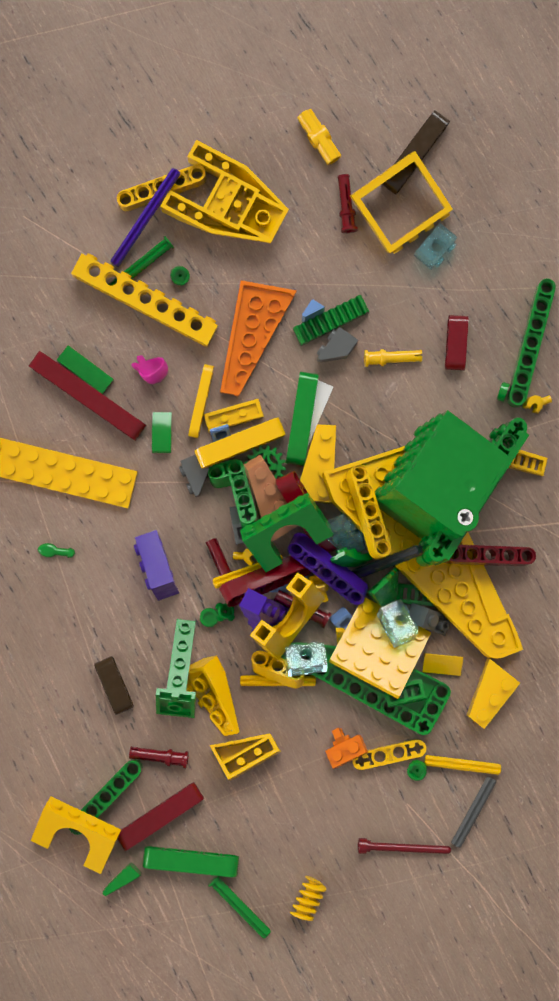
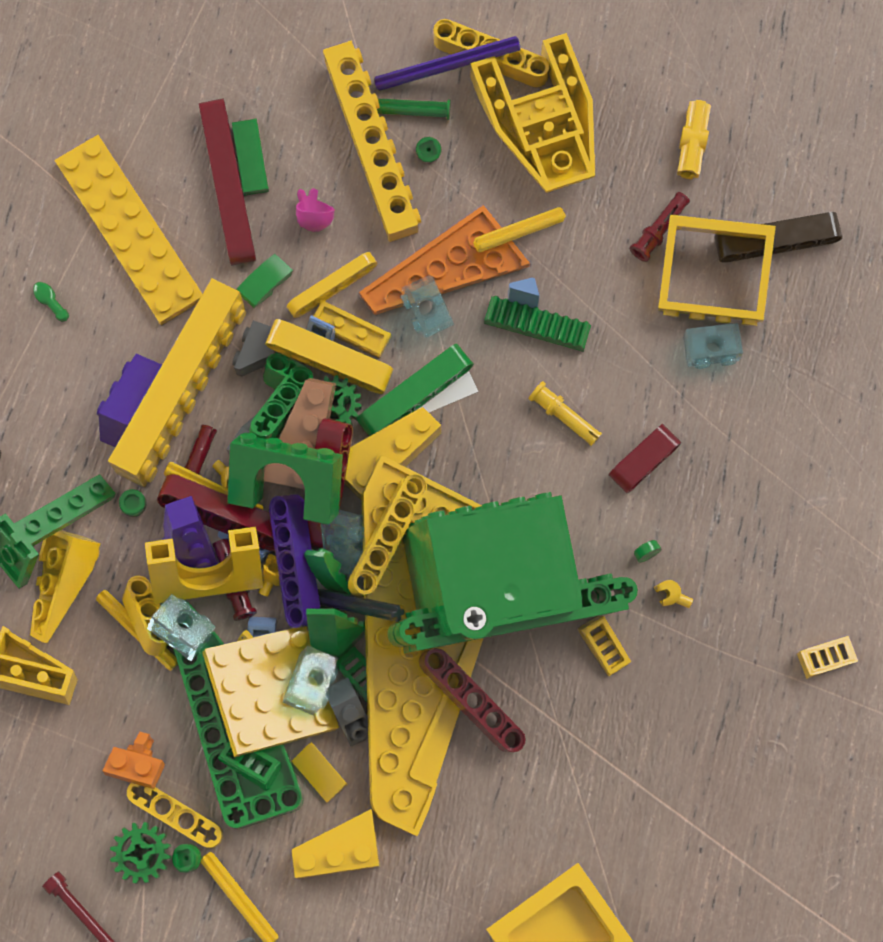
camera: 45 degrees right, 10 degrees down
(173, 531) = (178, 383): none -> yellow brick
(221, 615) = (145, 511): green plate -> none
(273, 276) = (519, 229): none -> yellow axle
(276, 367) = (437, 318): none -> clear light blue brick
(338, 347) = (519, 355): dark grey slope -> none
(399, 794) = (142, 865): none -> green gear
(537, 336) = (729, 517): green beam -> none

